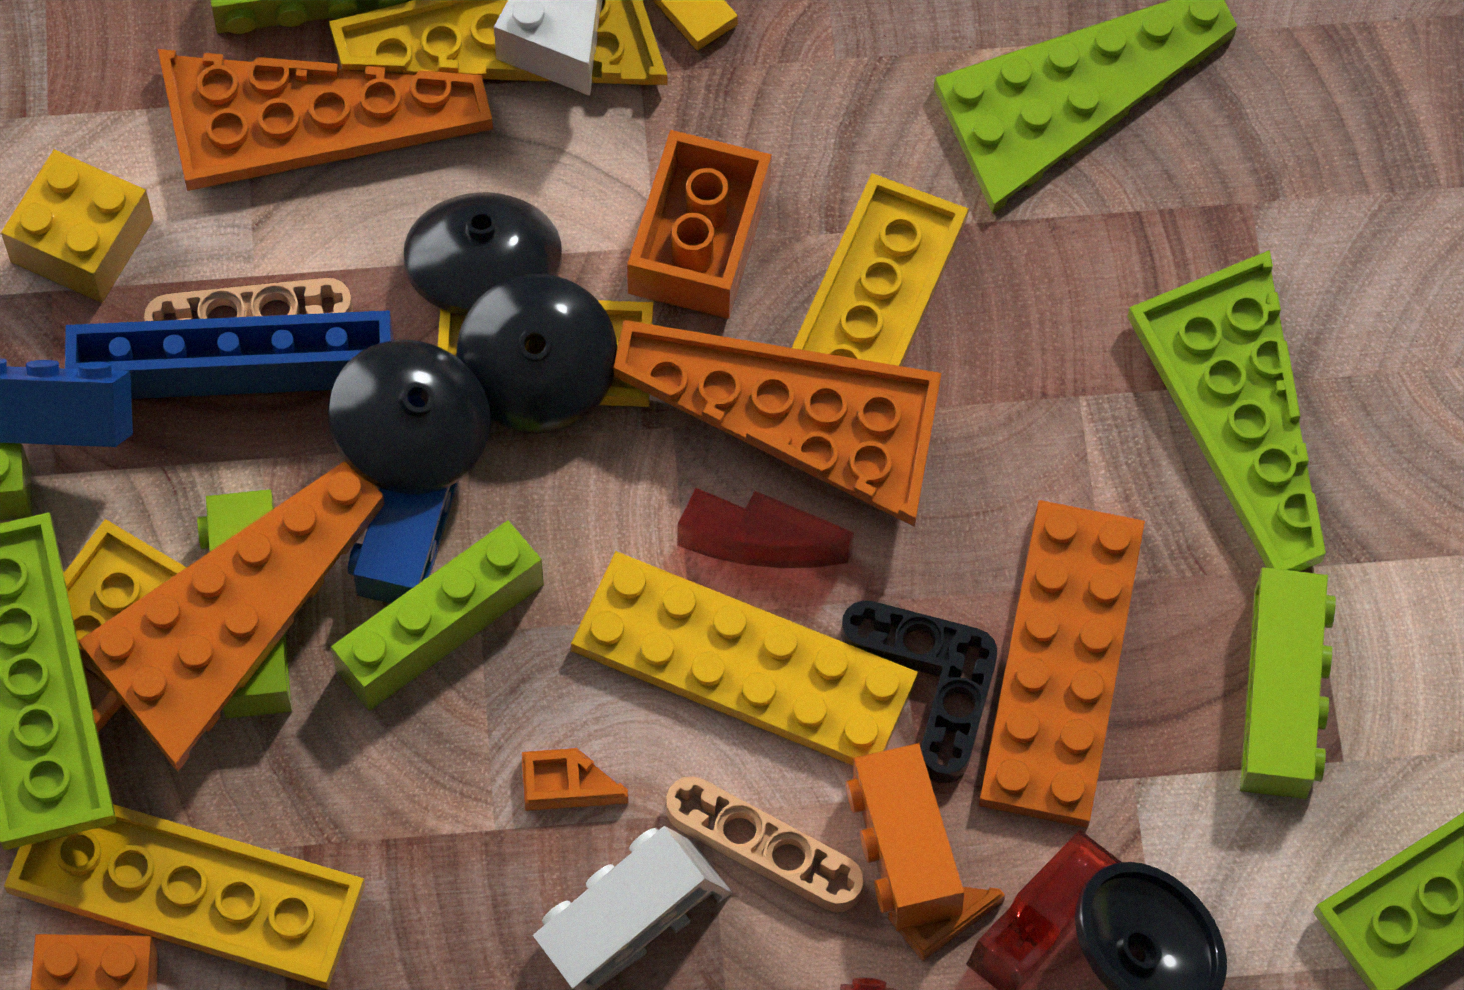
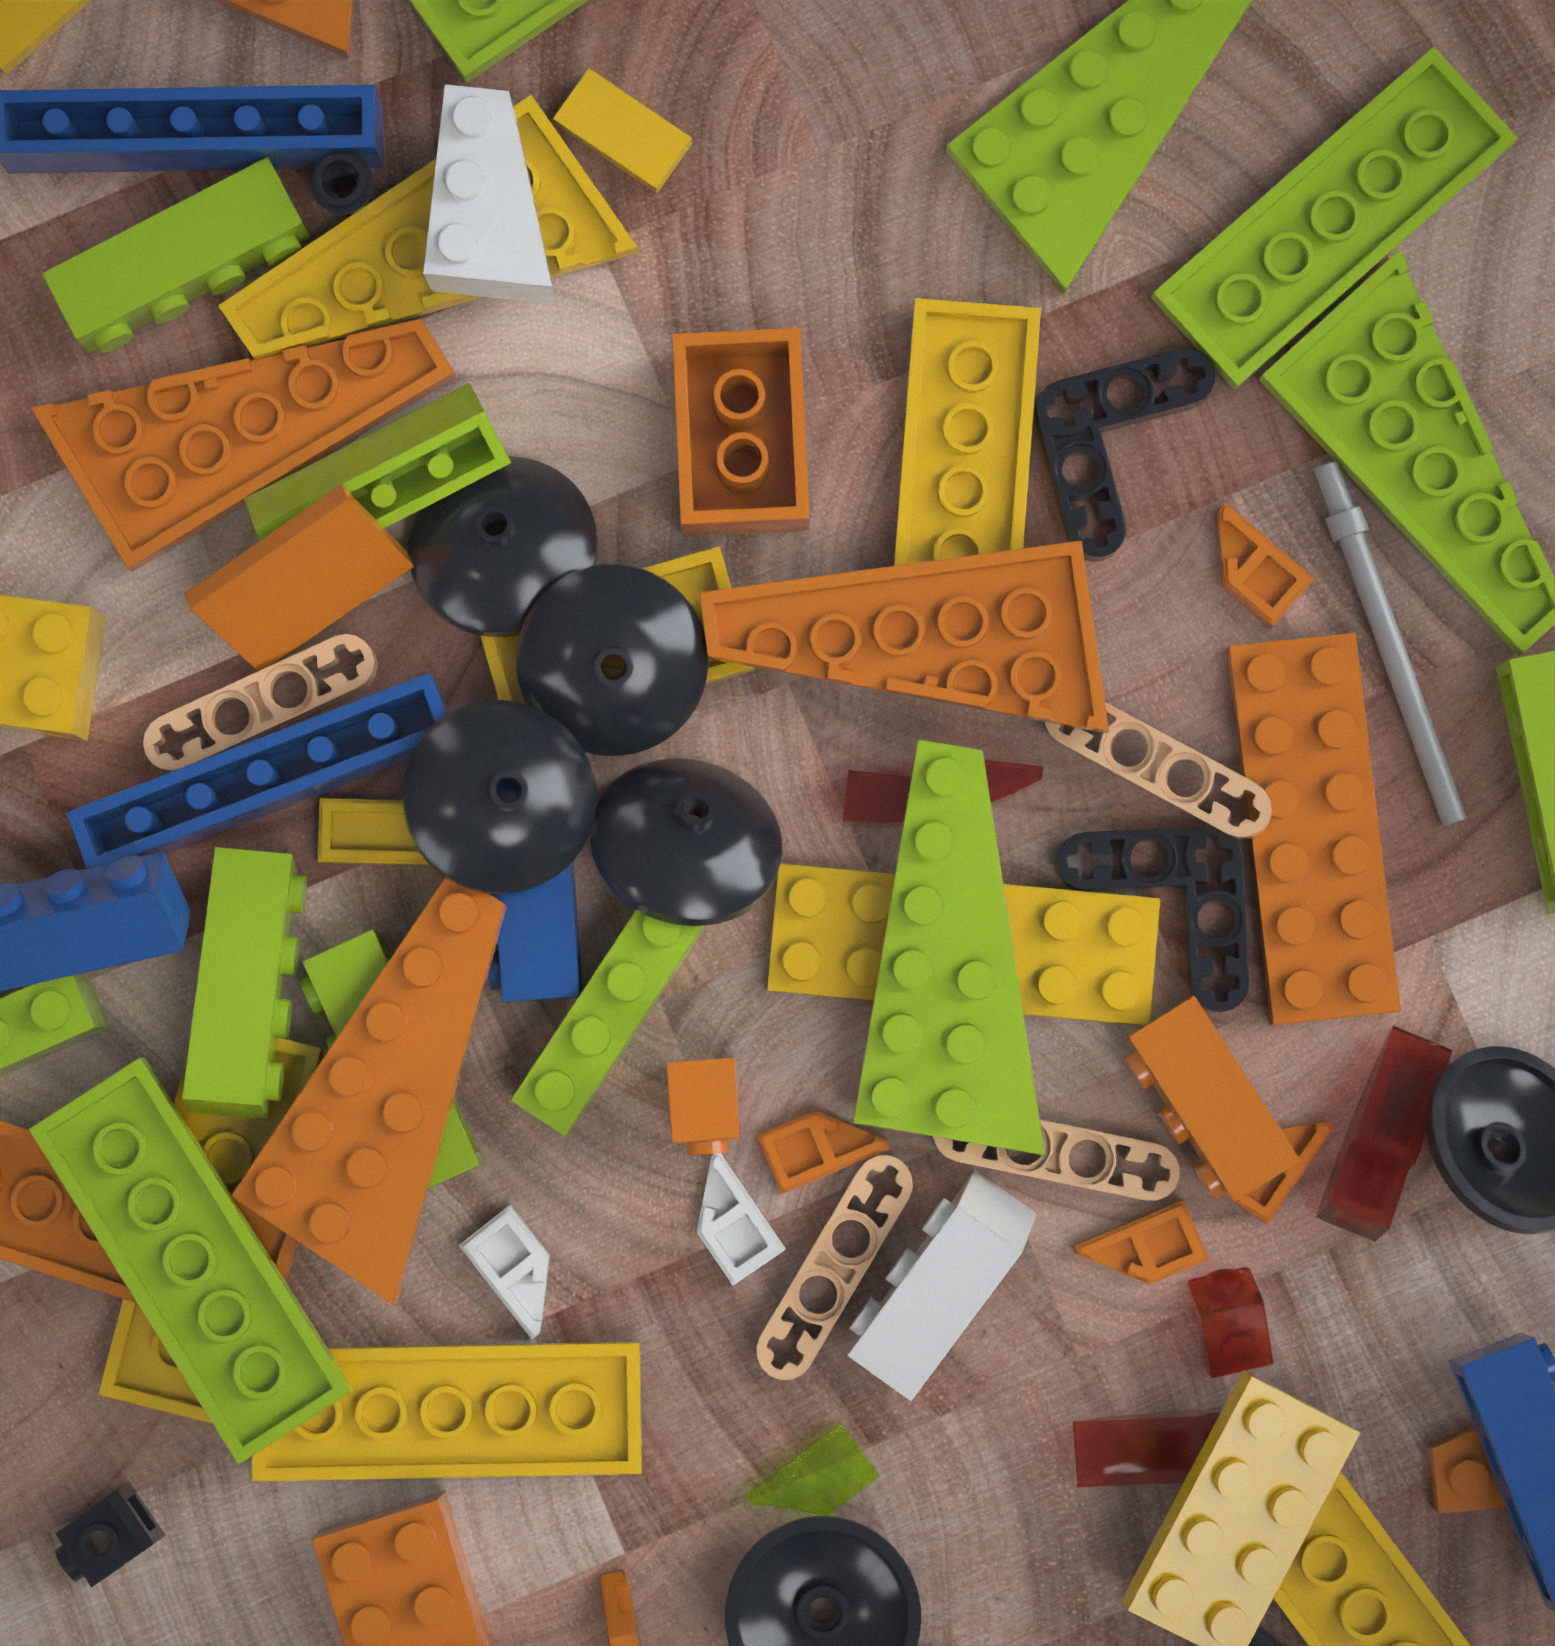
camera: 15 degrees left, 20 degrees up
(151, 499) = (242, 984): none -> lime brick
(283, 793) = (512, 1265): none -> white tile
(294, 433) = (365, 833): none -> yellow tile
(314, 218) = (299, 579): none -> orange tile
(402, 174) = (395, 466): none -> lime brick
(477, 819) = (734, 1225): none -> white tile
(487, 688) = (704, 1104): none -> orange brick
(542, 870) = (841, 1270): none -> light nougat beam
(546, 503) = (682, 865): none -> black dish
(714, 687) = (947, 1002): none -> lime wing
(816, 944) = (1149, 1245): none -> orange tile
(945, 570) = (1154, 771): none -> light nougat beam
(974, 313) = (1086, 434): none -> black beam
(1081, 455) = (1256, 569): none -> orange tile
(1165, 445) = (1348, 527): none -> light grey bar
(1223, 216) = (1334, 218): none -> lime plate

